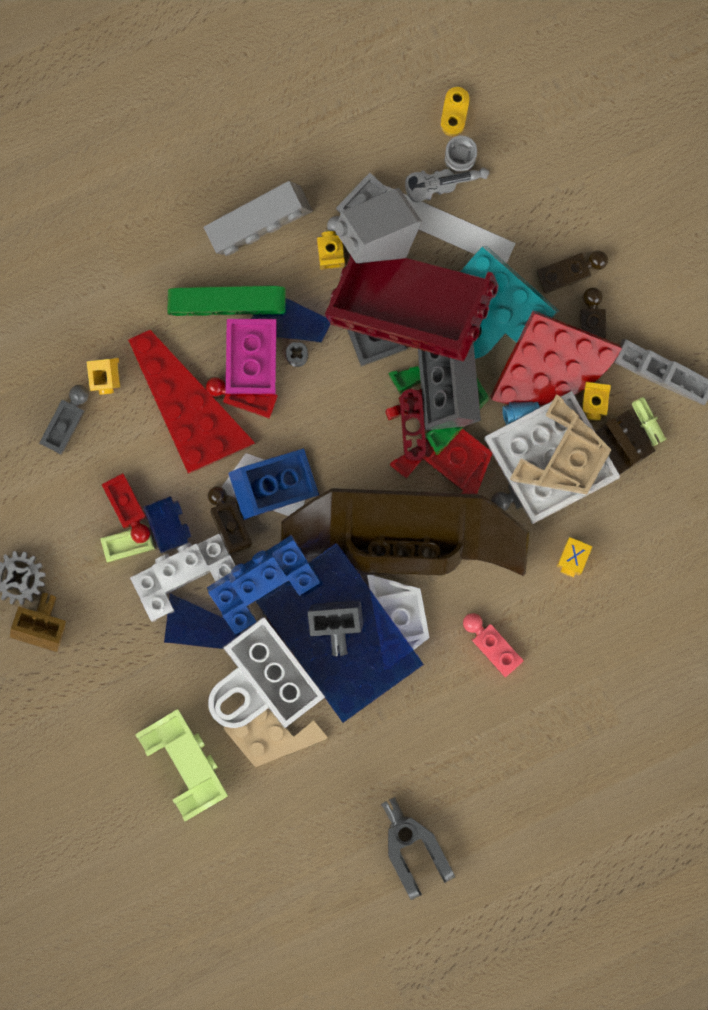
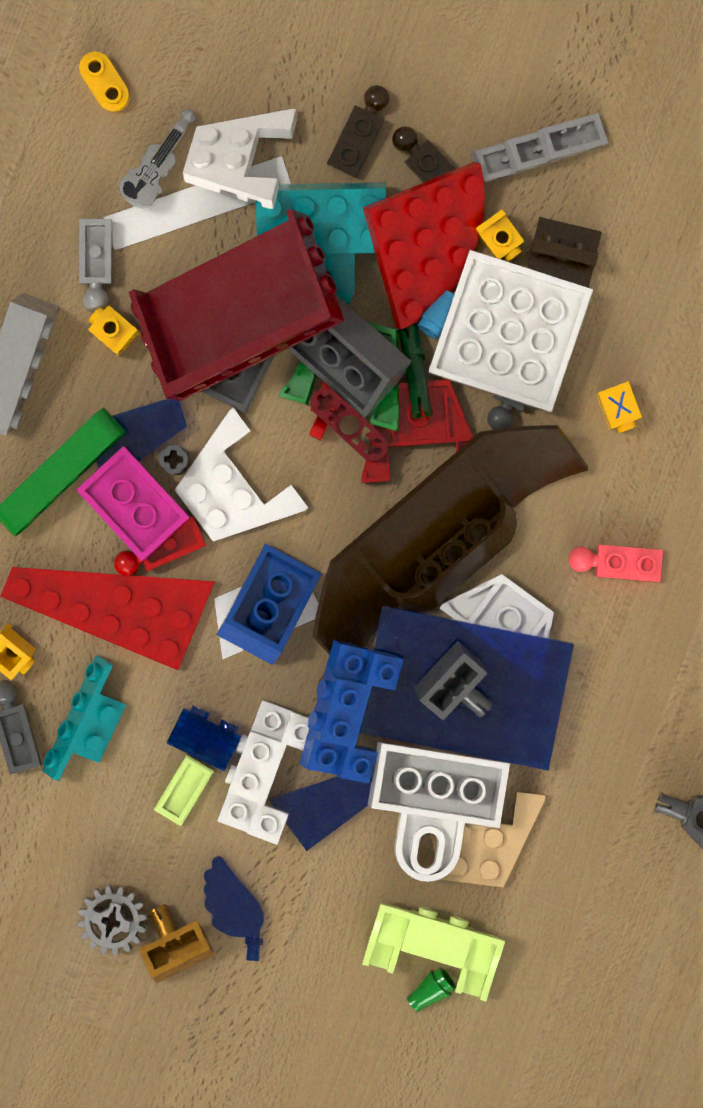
camera: 40 degrees left, 5 degrees up
(93, 635) = (233, 907): none -> clear blue animal
(111, 455) = (87, 723): none -> teal bracket
(127, 507) = (151, 757): red plate -> none
(161, 787) = (432, 989): none -> green cone
(228, 521) = (260, 680): dark brown plate -> none
(304, 398) = (222, 496): none -> white wing
(379, 228) = (139, 265): light grey slope -> none
(460, 154) = (149, 119): light grey wheel -> none
(477, 430) = (416, 372): none -> dark green pin
(486, 210) = (225, 152): none -> white wing
(575, 460) = (536, 313): tan wing -> none
(648, 421) = (568, 209): yellowish green axle -> none

